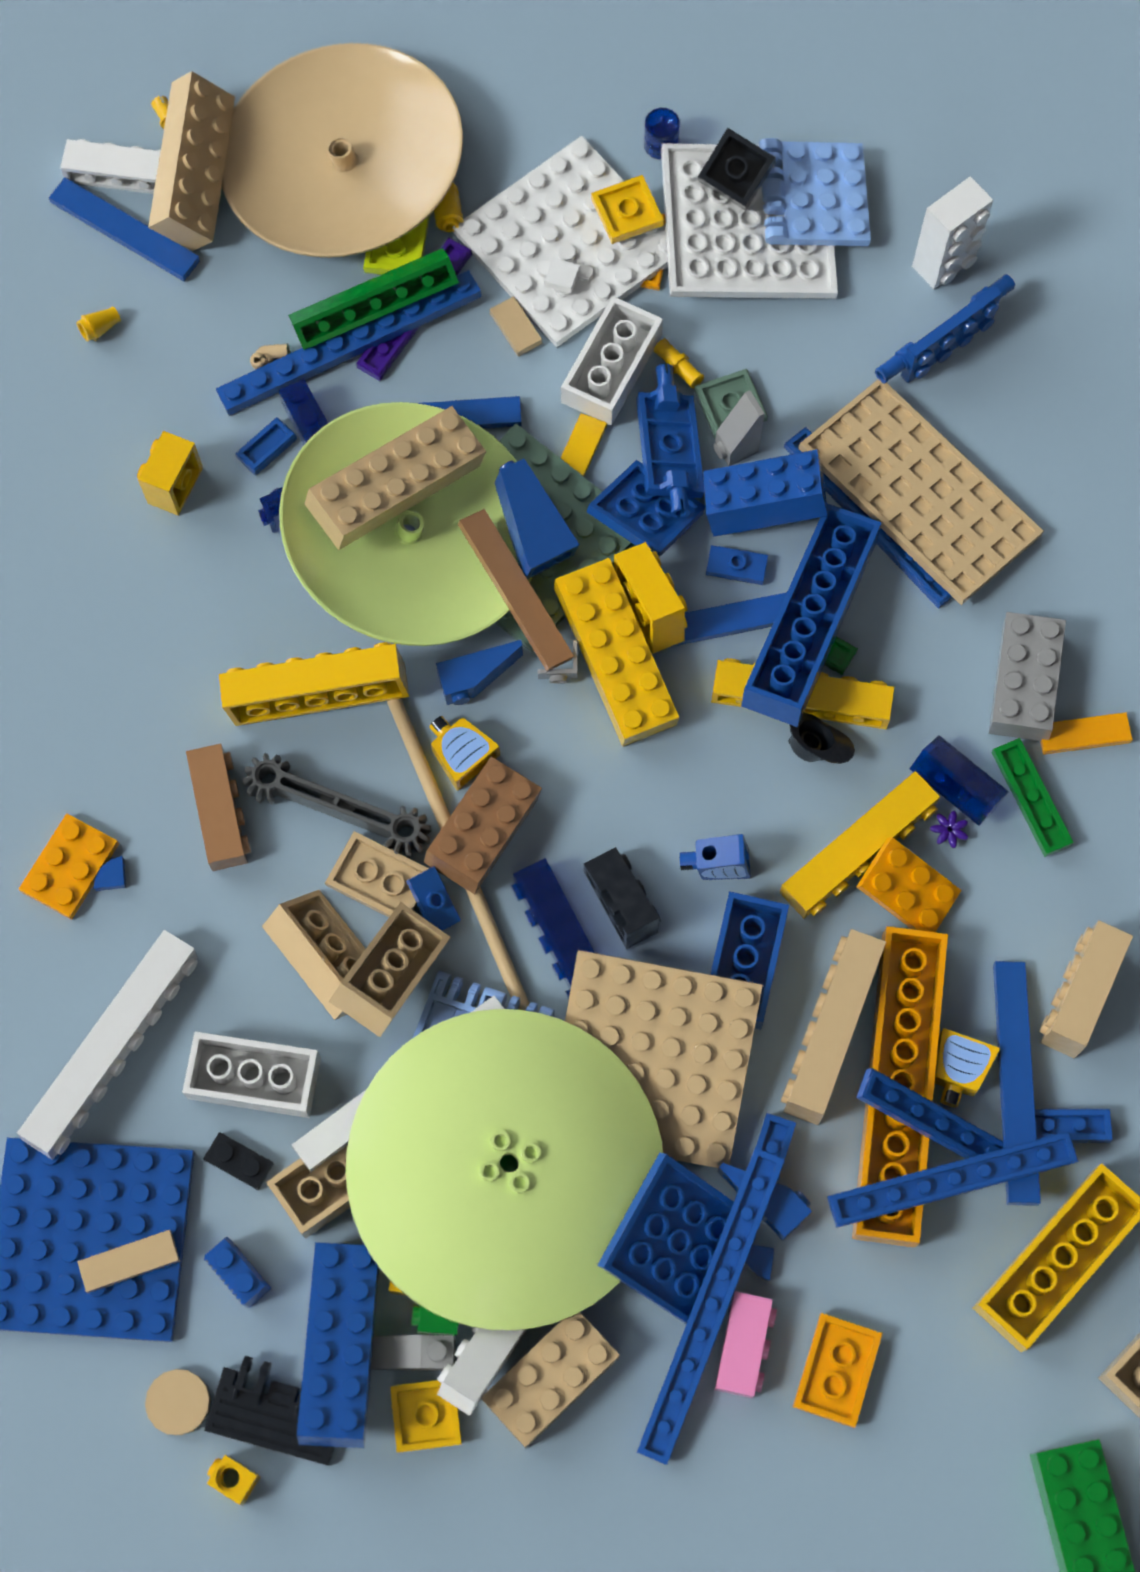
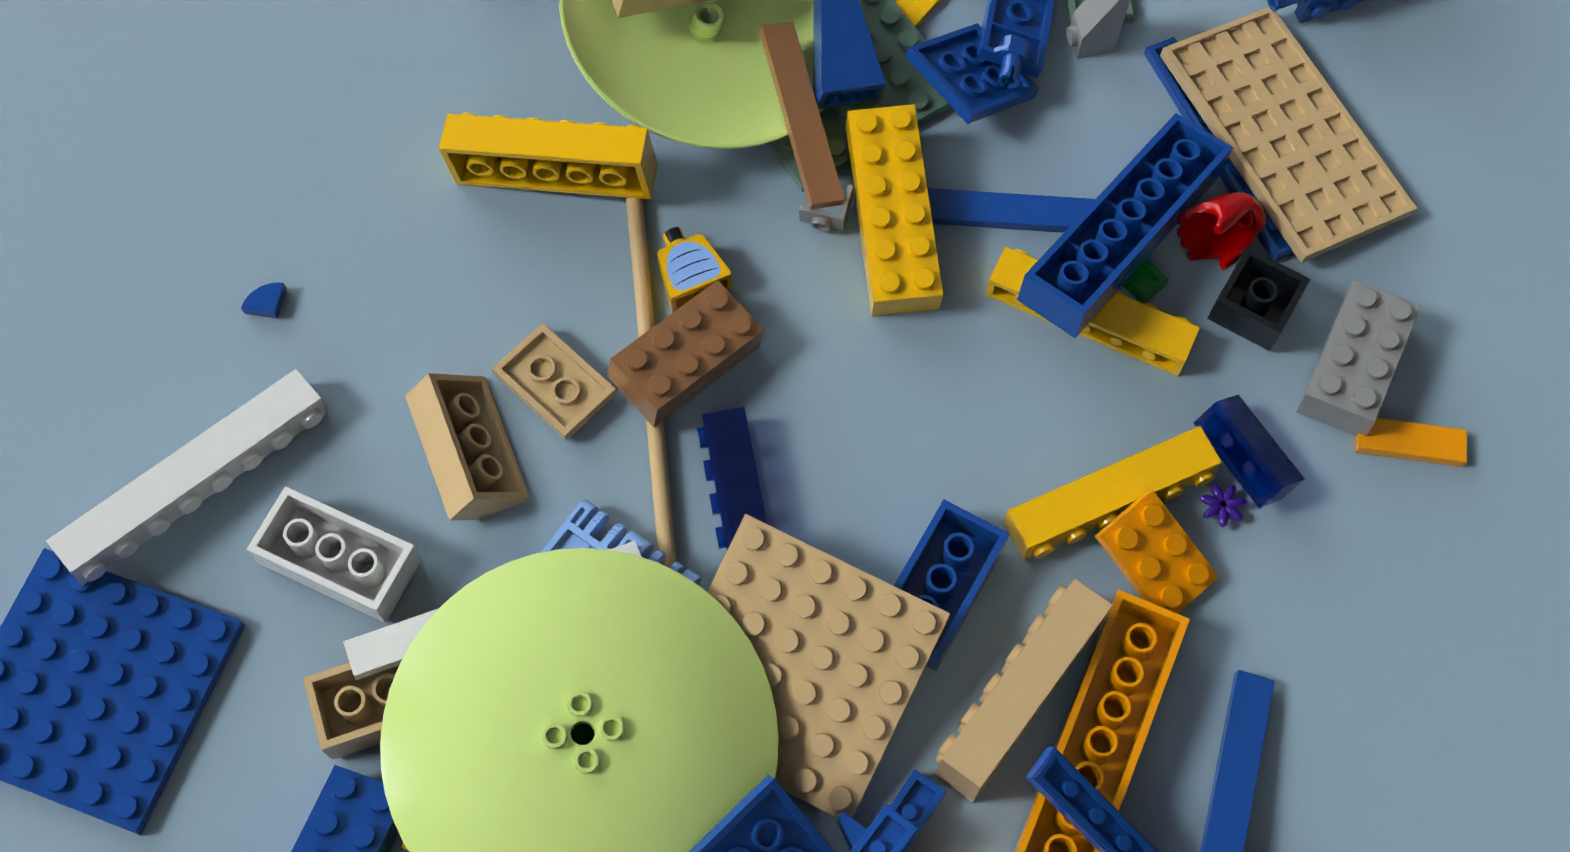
camera: 15 degrees right, 5 degrees down
(68, 866) = (222, 278): light orange plate -> none
(128, 1261) = (119, 724): tan tile -> none
(217, 807) = (403, 259): medium nougat brick -> none
(237, 1272) = (237, 774): blue brick -> none
(238, 1161) = (288, 648): black plate -> none
(336, 805) = (533, 290): dark grey arm -> none
(389, 969) = (524, 477): tan brick -> none
(433, 899) = (604, 420): blue plate -> none
(472, 673) = (732, 192): blue slope -> none
(622, 897) = (820, 476): black wedge -> none
(652, 597) = (950, 160): yellow brick -> none
(729, 854) = (944, 462): torso -> none
(736, 565) = (1056, 158): blue plate -> none
(765, 493) = (1109, 85): blue brick -> none
(818, 741) = (1095, 366): black piece -> none
(890, 593) = (1221, 228): none -> red hair
(935, 647) = (1258, 298): none -> black brick
(961, 1065) = (1165, 780): torso -> none
(1032, 797) = (1331, 495): green plate -> none
(1086, 988) = (1341, 730): tan brick -> none

